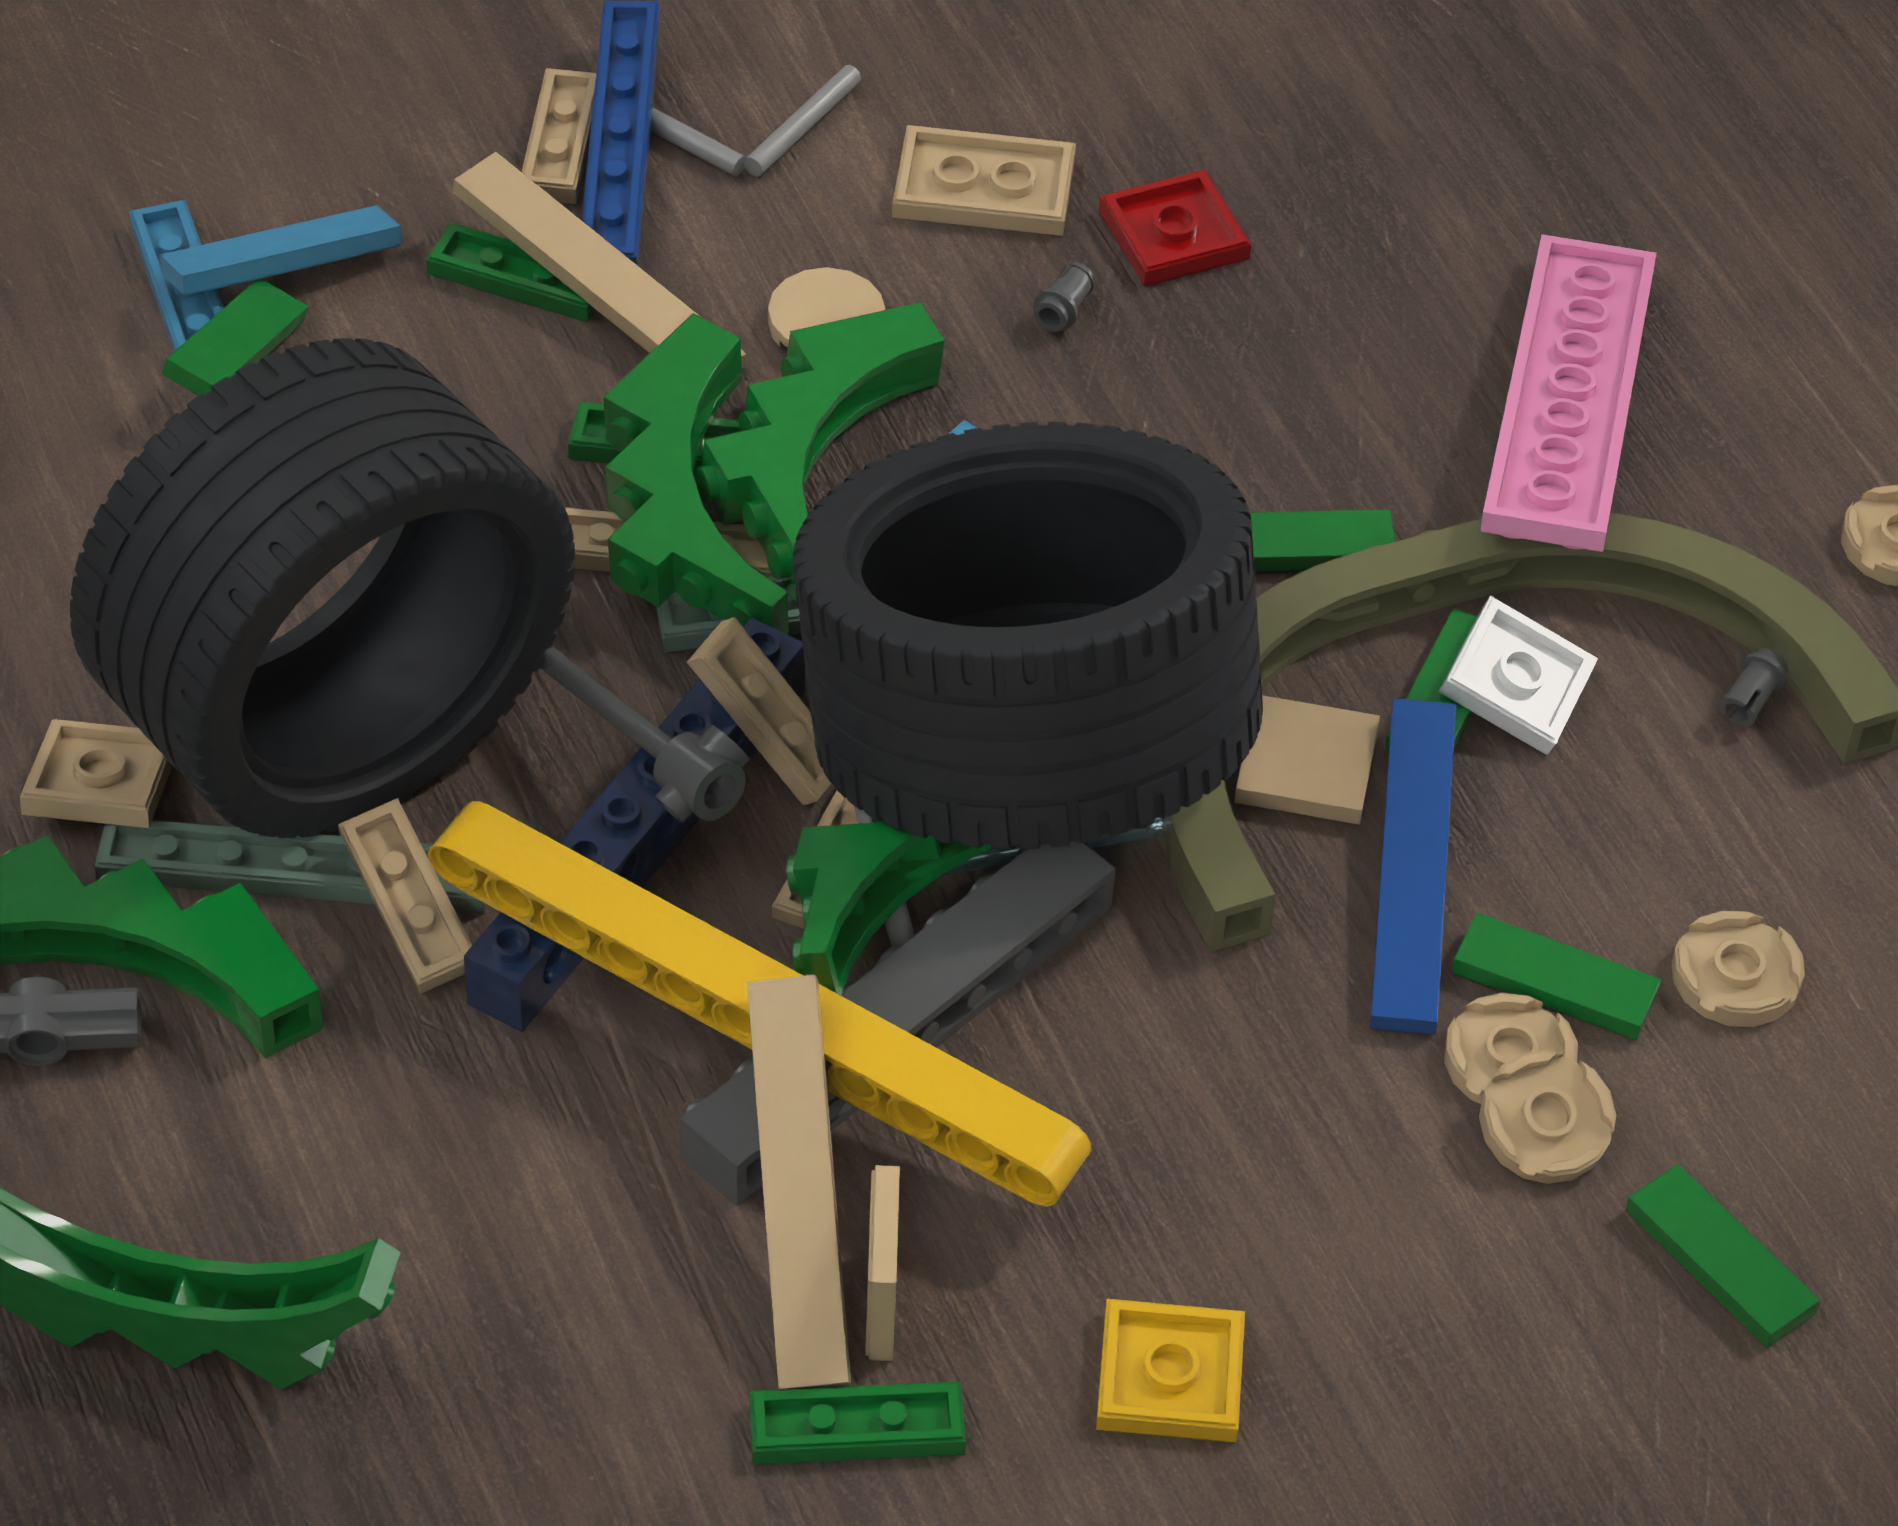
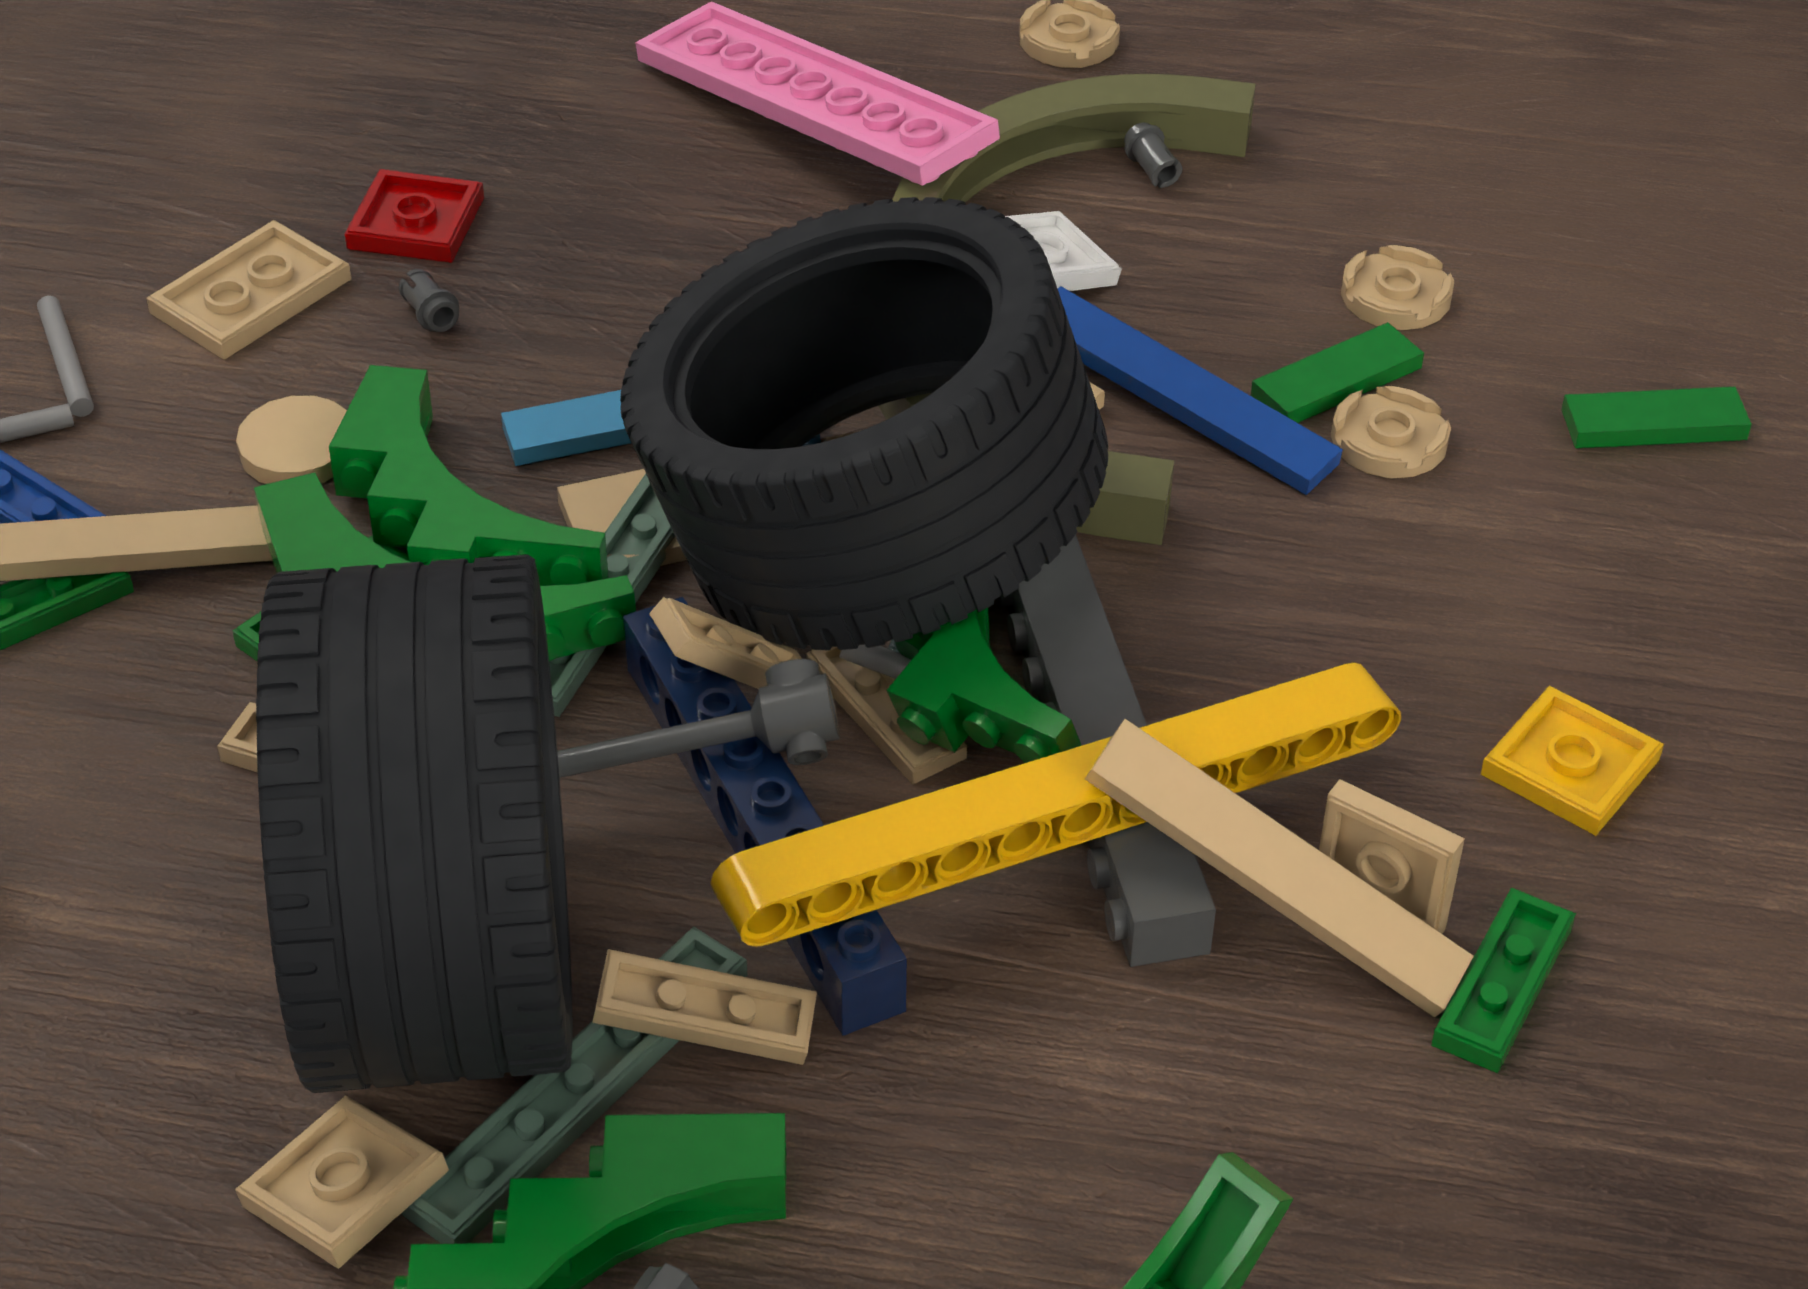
camera: 55 degrees left, 5 degrees down
(1547, 1116) = (1476, 436): tan tile -> none

